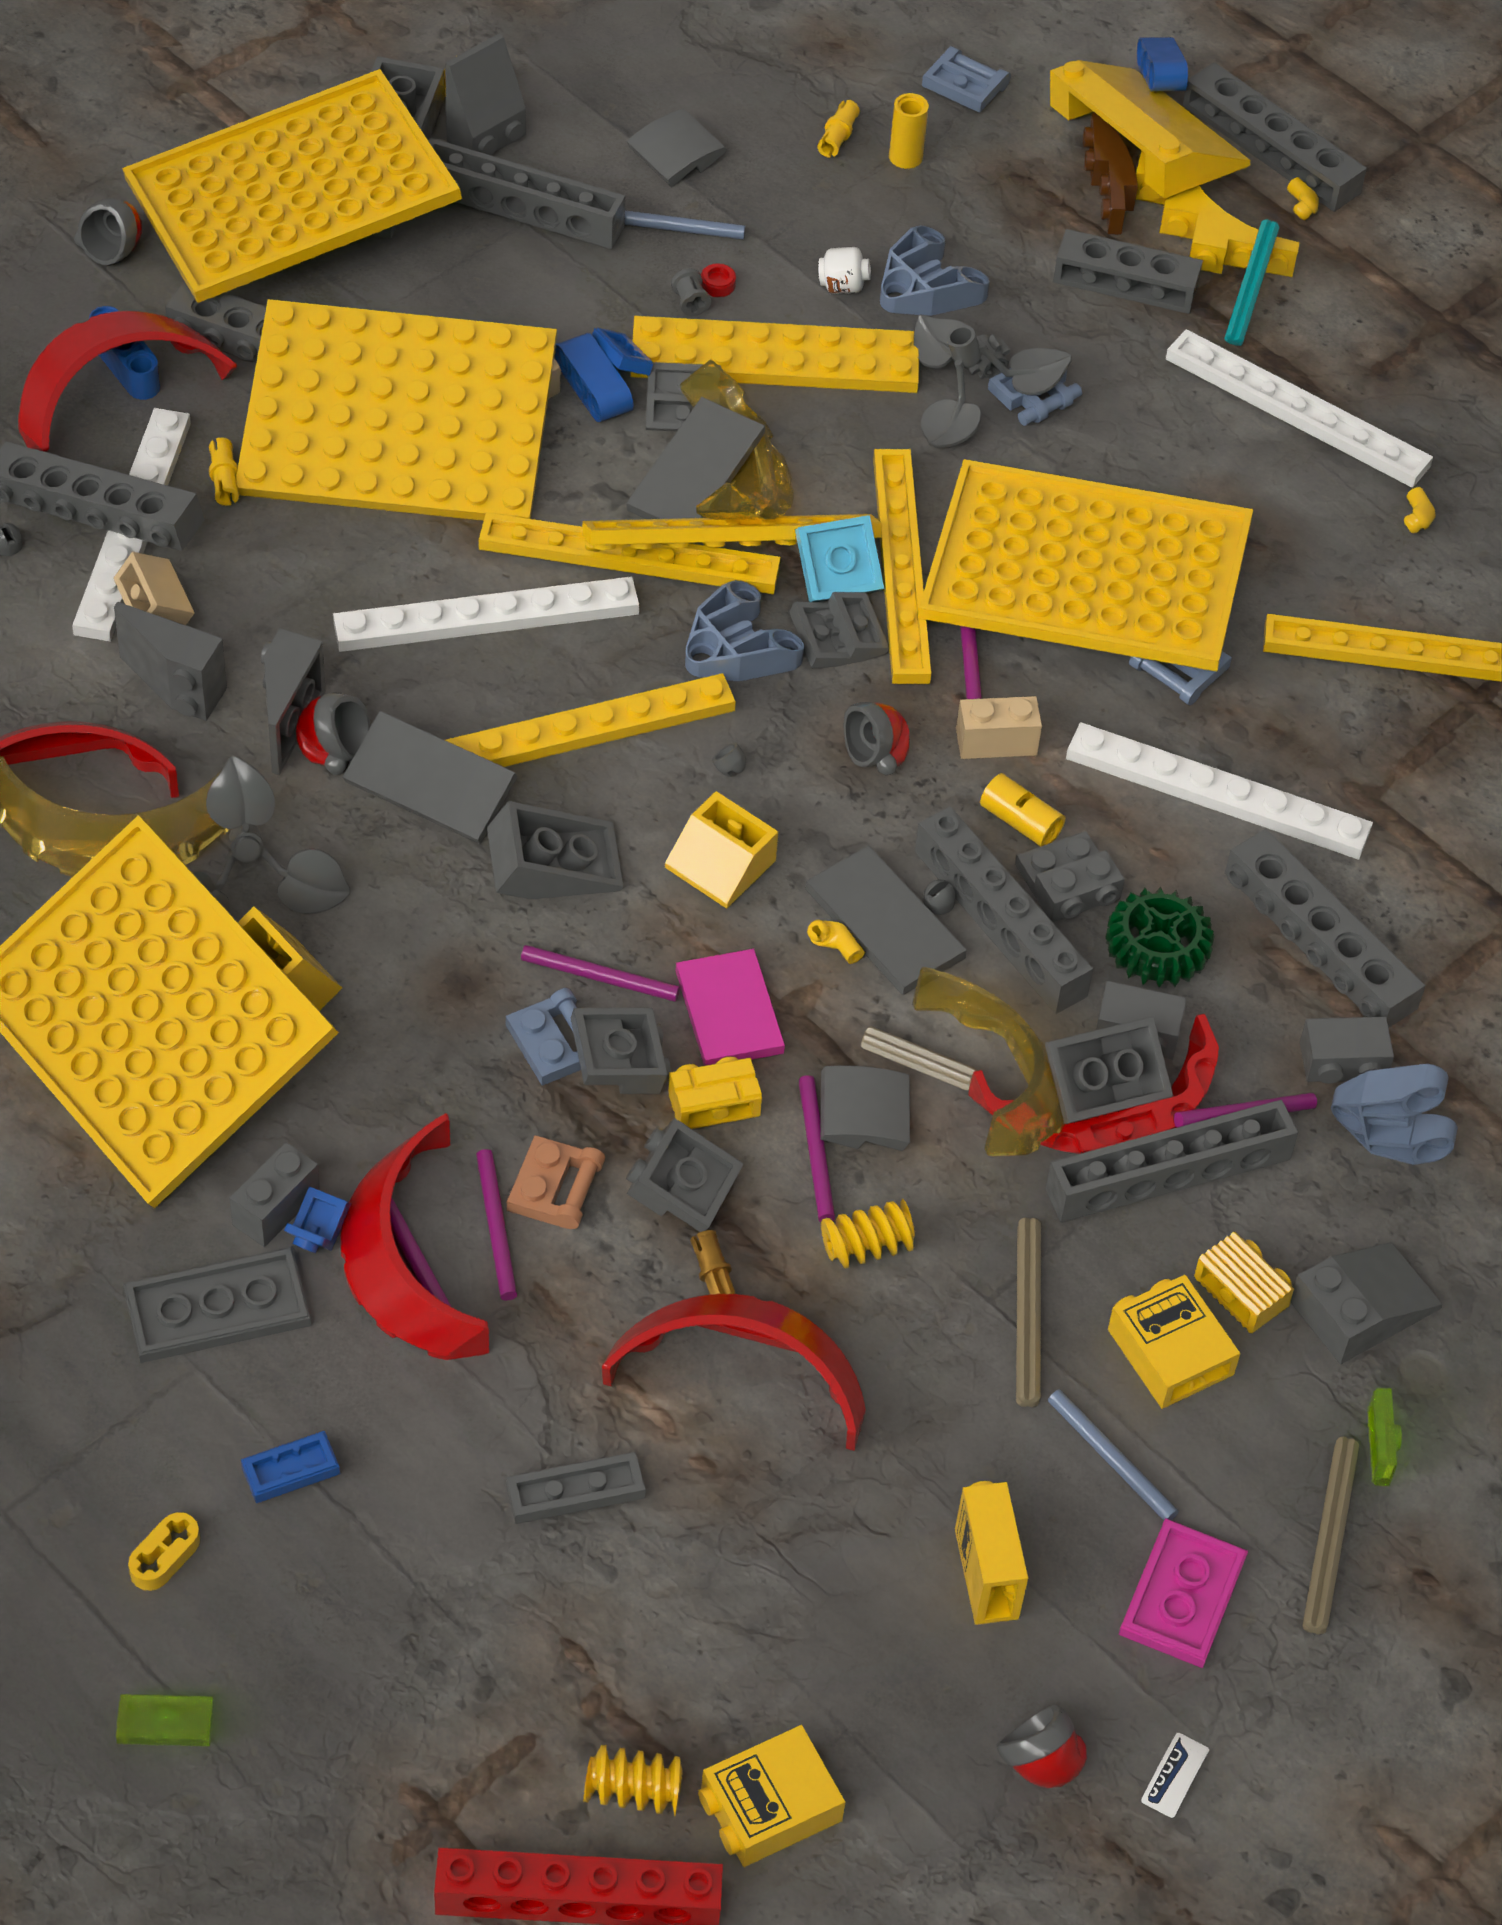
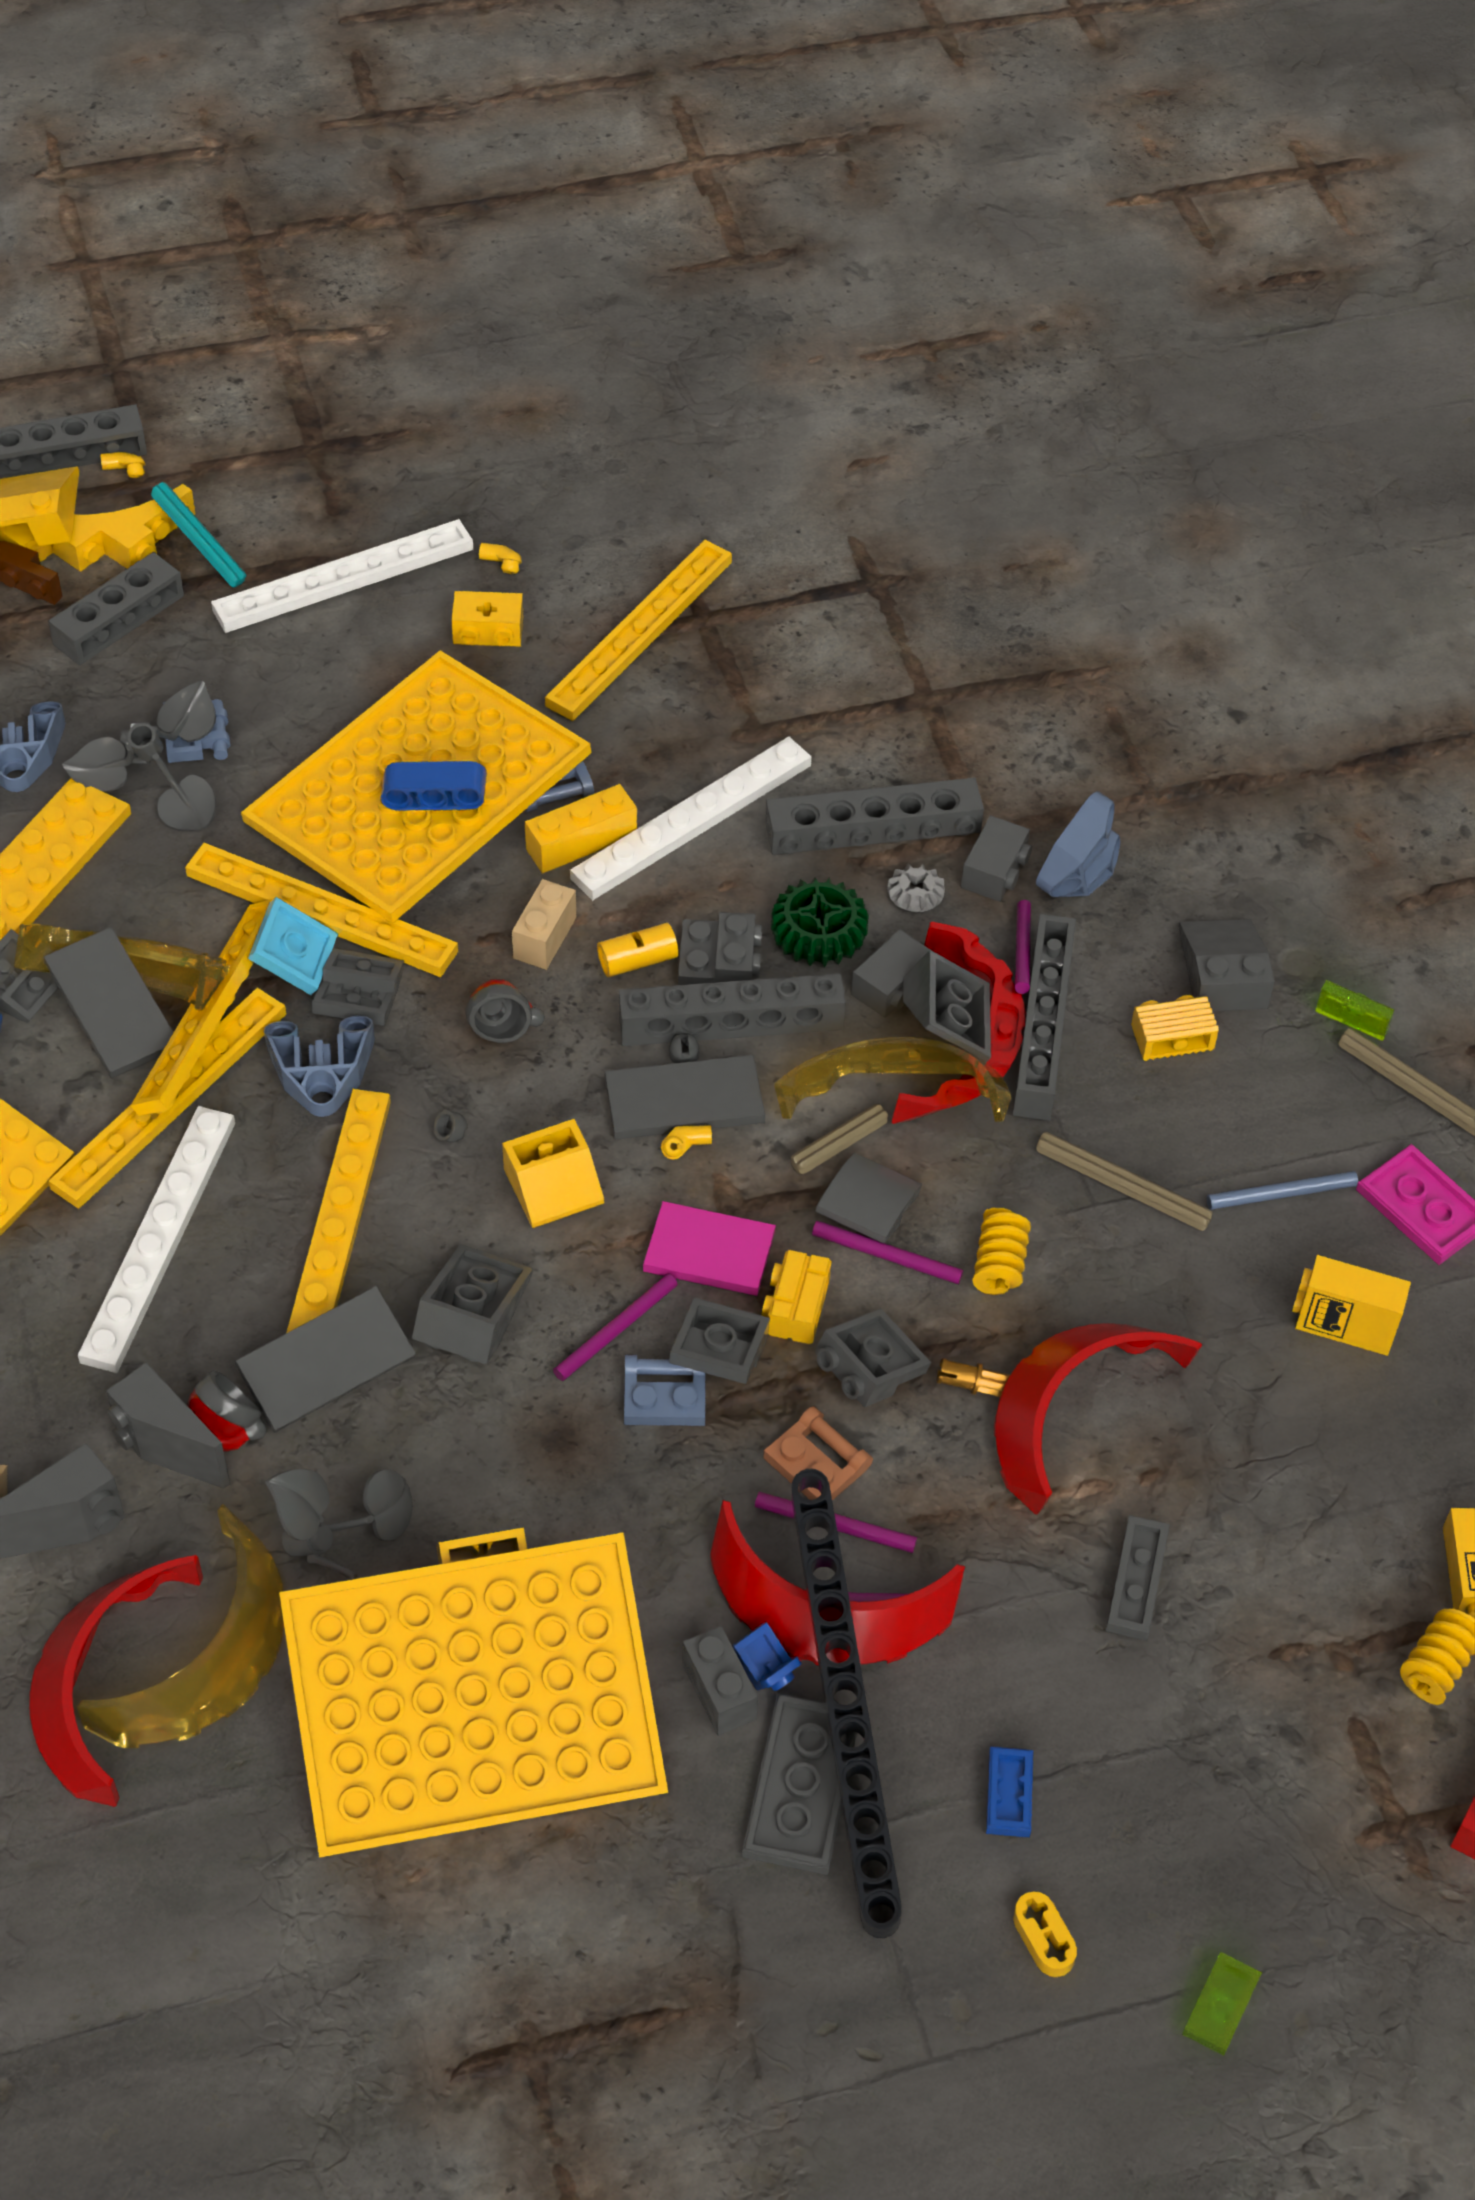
camera: 60 degrees left, 0 degrees up
(285, 1302) = (848, 1717): none -> black beam
(971, 663) = (466, 918): magenta bar -> none
(1077, 568) = (434, 785): none -> blue beam
(1130, 706) = (580, 828): none -> yellow brick
(1173, 1340) = (1204, 1098): yellow brick -> none
(1249, 1003) = (916, 899): none -> light grey gear
(1329, 532) = (487, 618): none -> yellow brick

